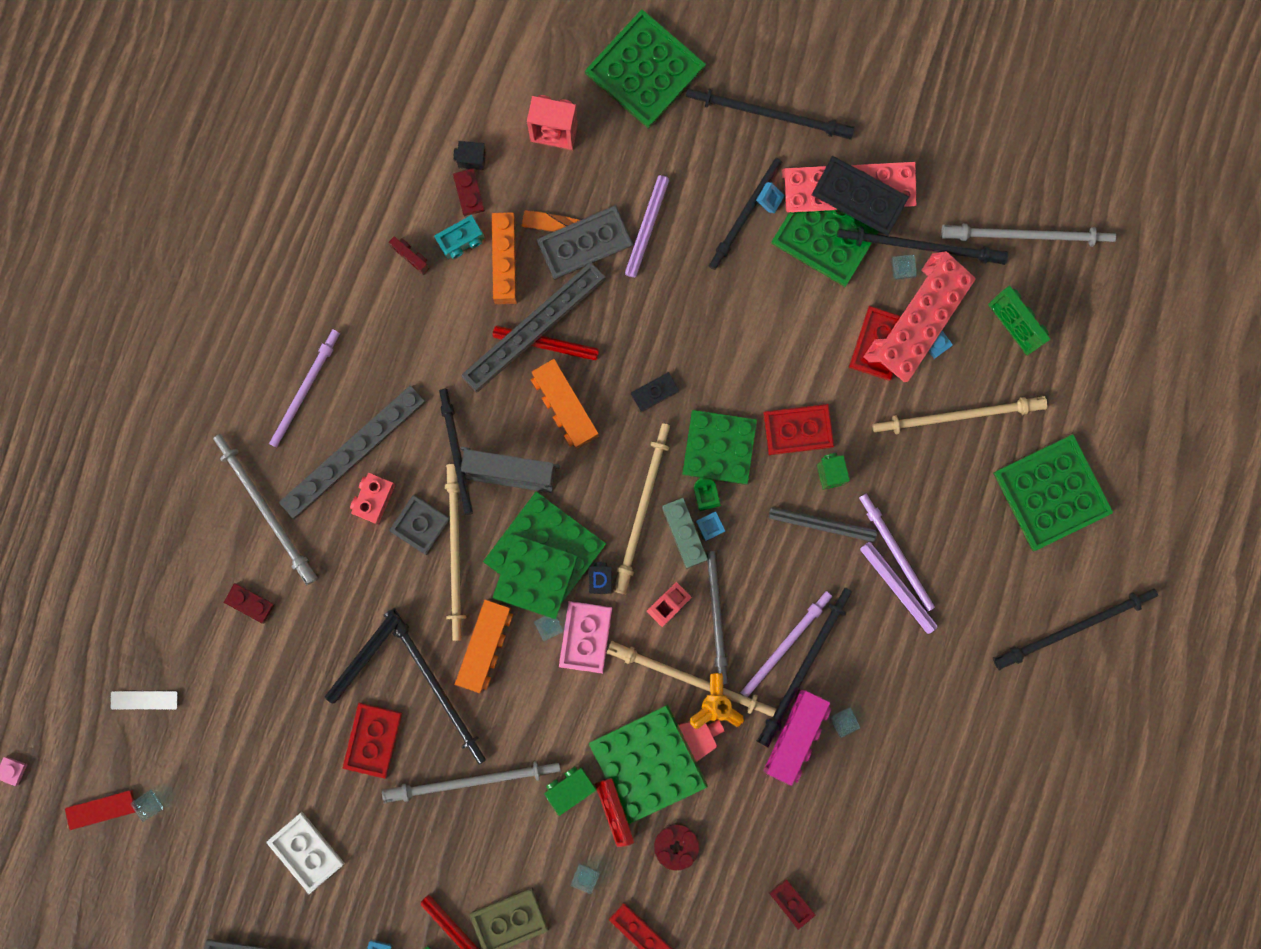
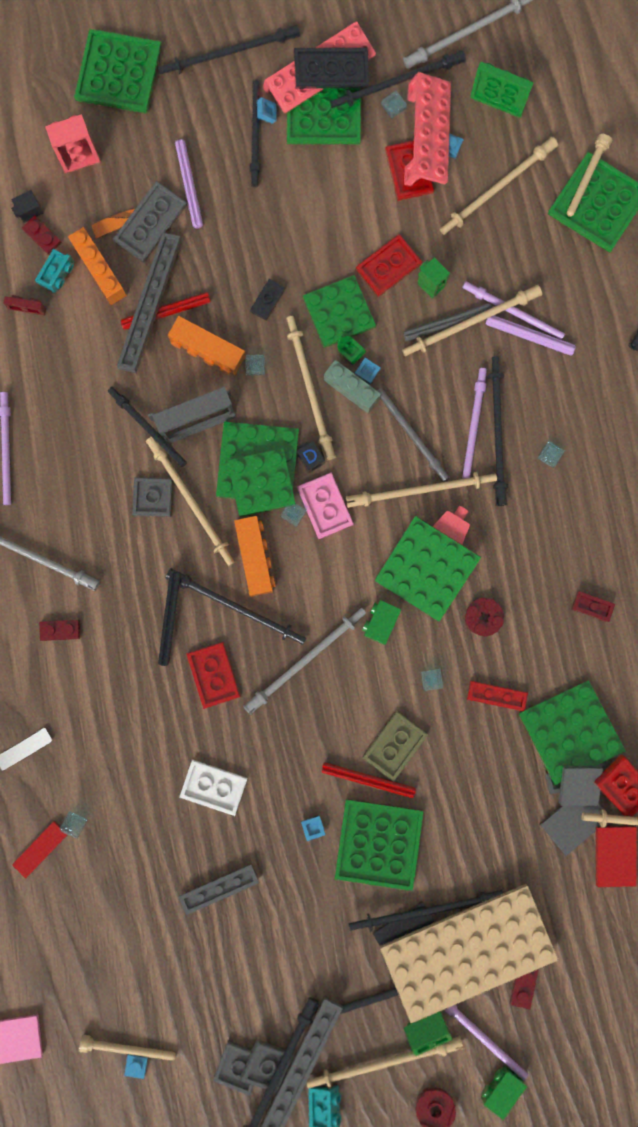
camera: 30 degrees left, 0 degrees up
(352, 452) = (69, 474): dark grey plate -> none
(372, 498) = (105, 498): coral brick -> none
(601, 452) = (255, 365): none -> clear light blue plate
(614, 812) = (424, 619): red tile -> none
(668, 604) = (371, 444): coral brick -> none
(716, 706) = (451, 496): light orange bush -> none
(796, 737) = (523, 482): dark pink brick -> none
(911, 545) = (521, 298): none -> tan bar
(1092, 435) = (602, 143): none -> tan piece

